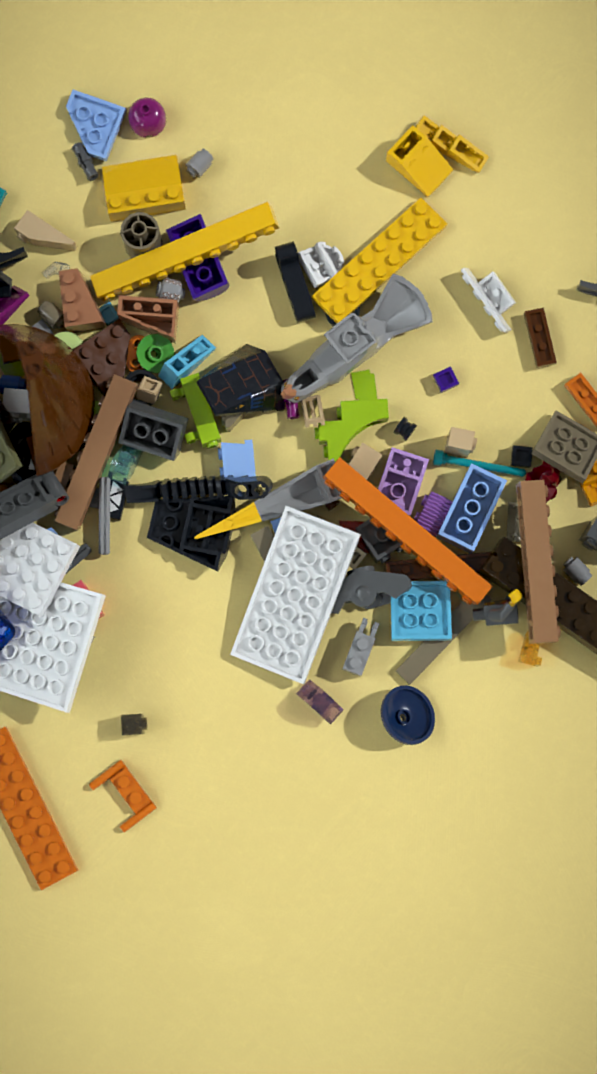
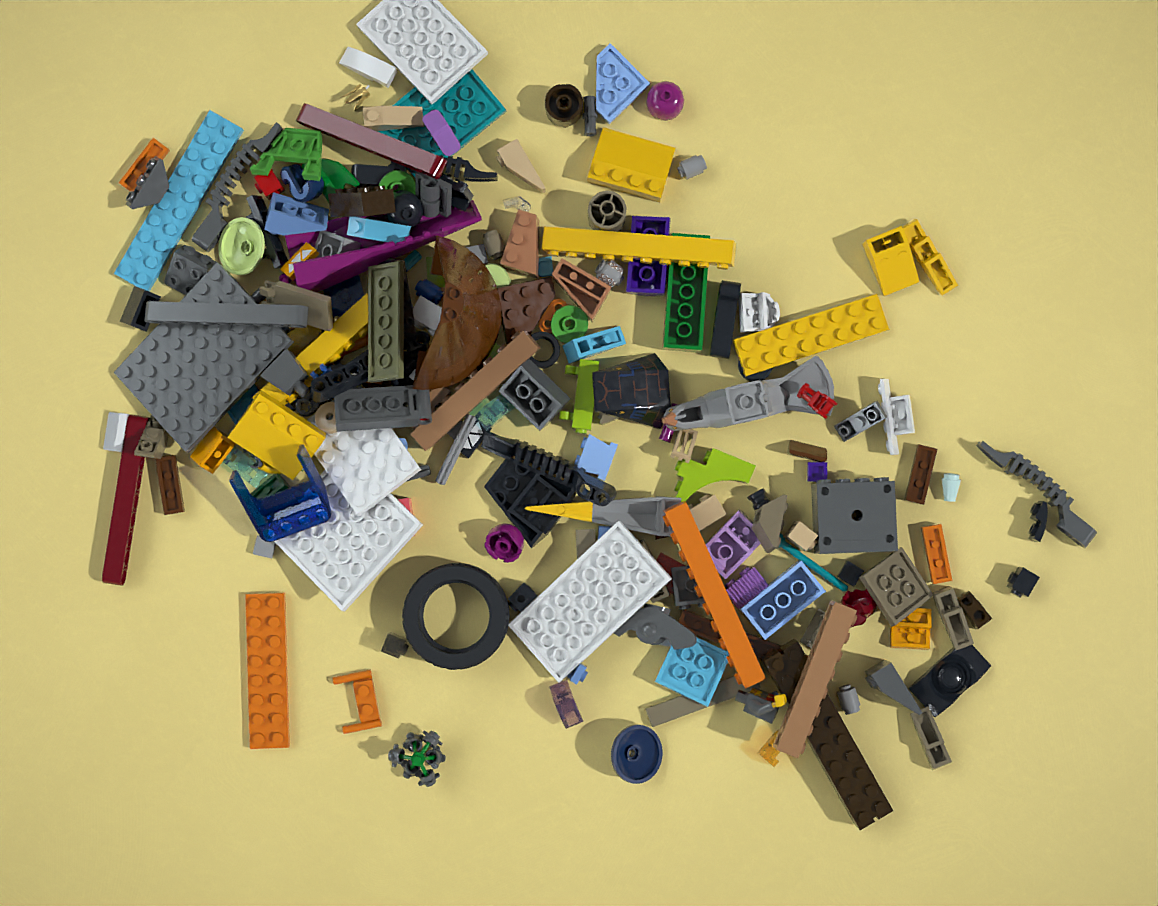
camera: 30 degrees right, 5 degrees up
(56, 161) = (564, 94): none -> dark brown brick
(135, 656) = (414, 611): none -> black tyre
(148, 390) = (548, 355): tan slope -> none
(190, 579) = (504, 542): none -> magenta cylinder
(203, 831) = (415, 762): none -> dark grey plant
(231, 622) = (521, 598): none -> black brick
(254, 288) = (685, 305): none -> green brick
(317, 667) = (578, 673): none -> medium blue bracket
(360, 649) = (623, 676): light grey hinge -> none
(364, 385) = (742, 441): lime sticker -> none
(415, 313) = (818, 402): none -> red connector
(425, 444) = (769, 522): none -> dark tan slope
(427, 366) = (807, 451): none -> reddish brown slope
(462, 314) = (860, 421): none -> dark grey slope
(520, 398) = (875, 521): none -> dark grey gear
(572, 335) = (950, 486): none -> light aqua cone

